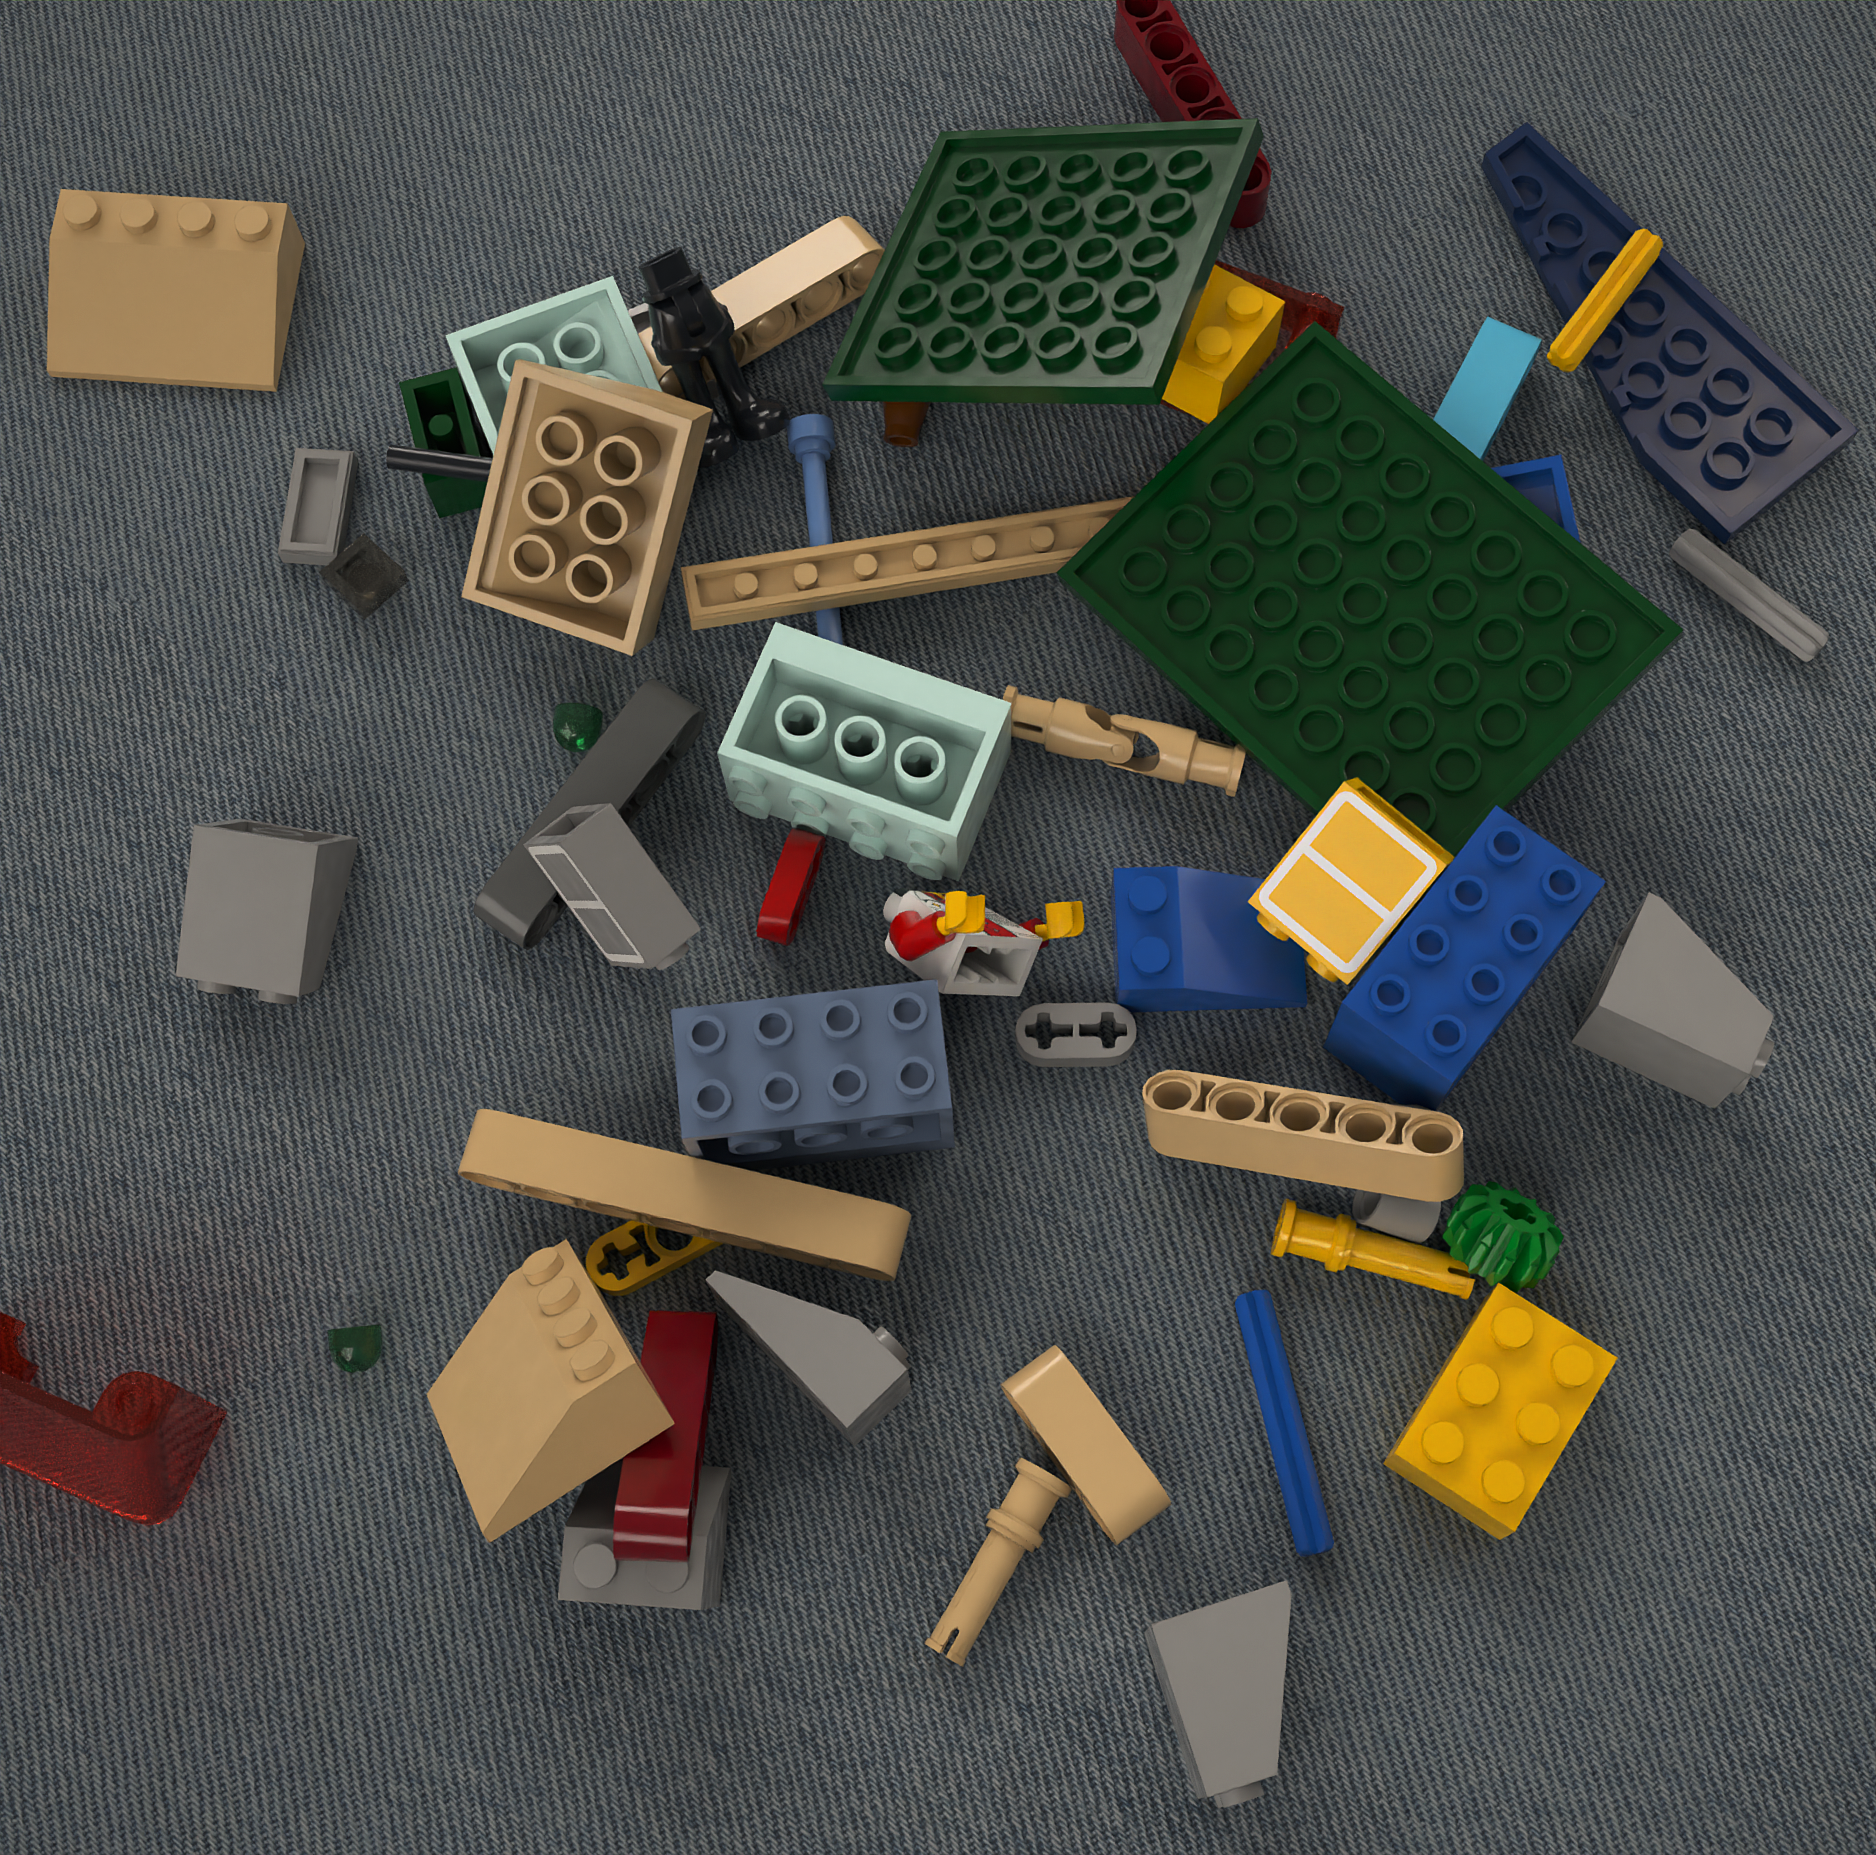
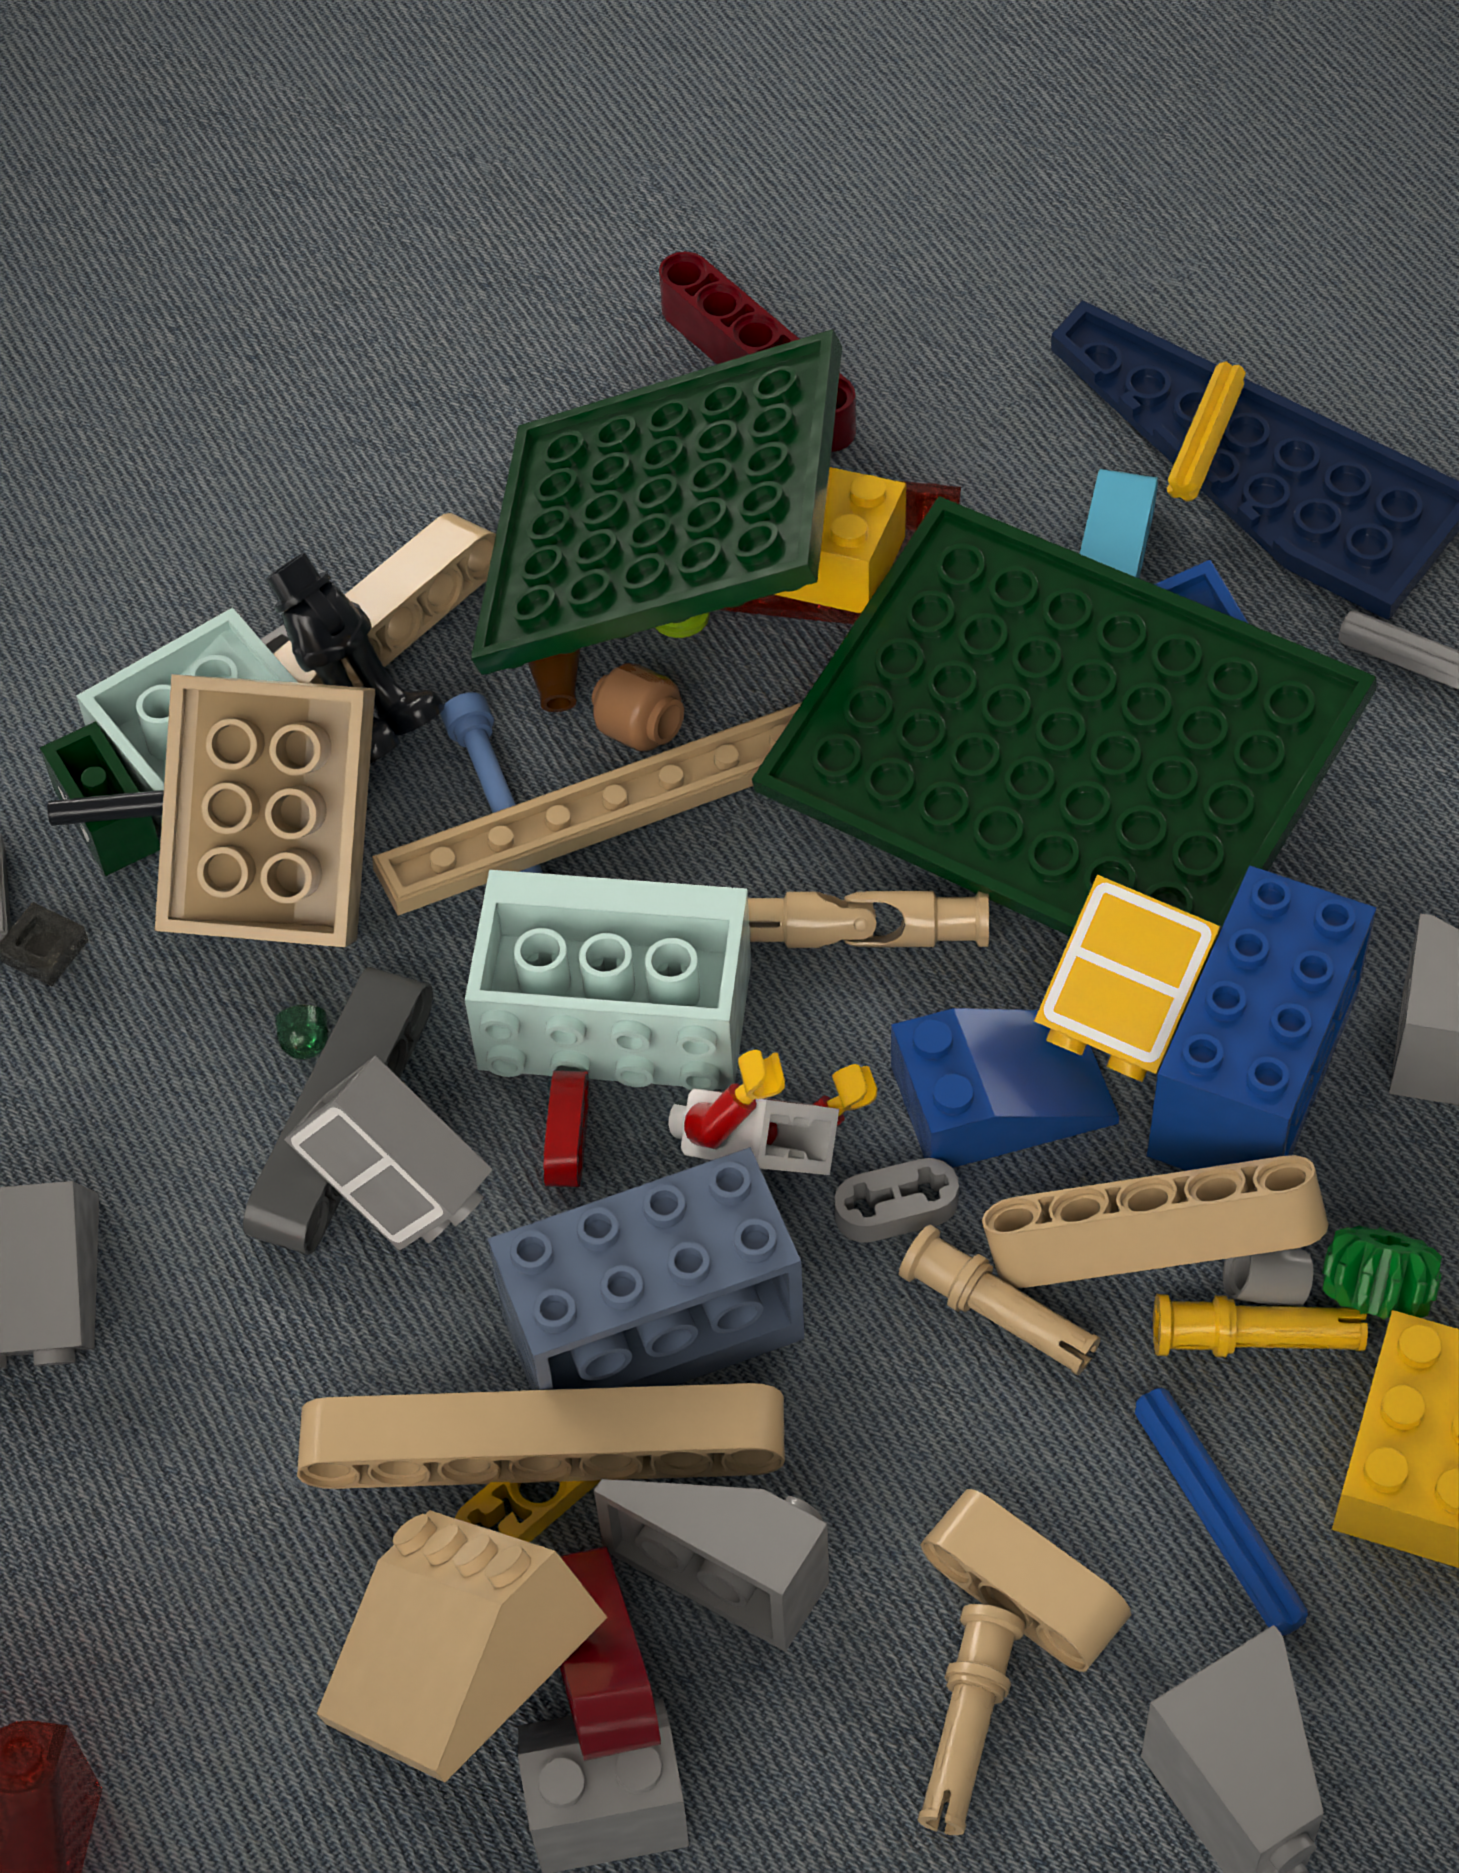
camera: 15 degrees left, 15 degrees down
(355, 1347) = (228, 1680): clear green hinge -> none
(971, 466) = (637, 707): none -> medium nougat head
(1119, 1140) = (971, 1284): none -> tan pin

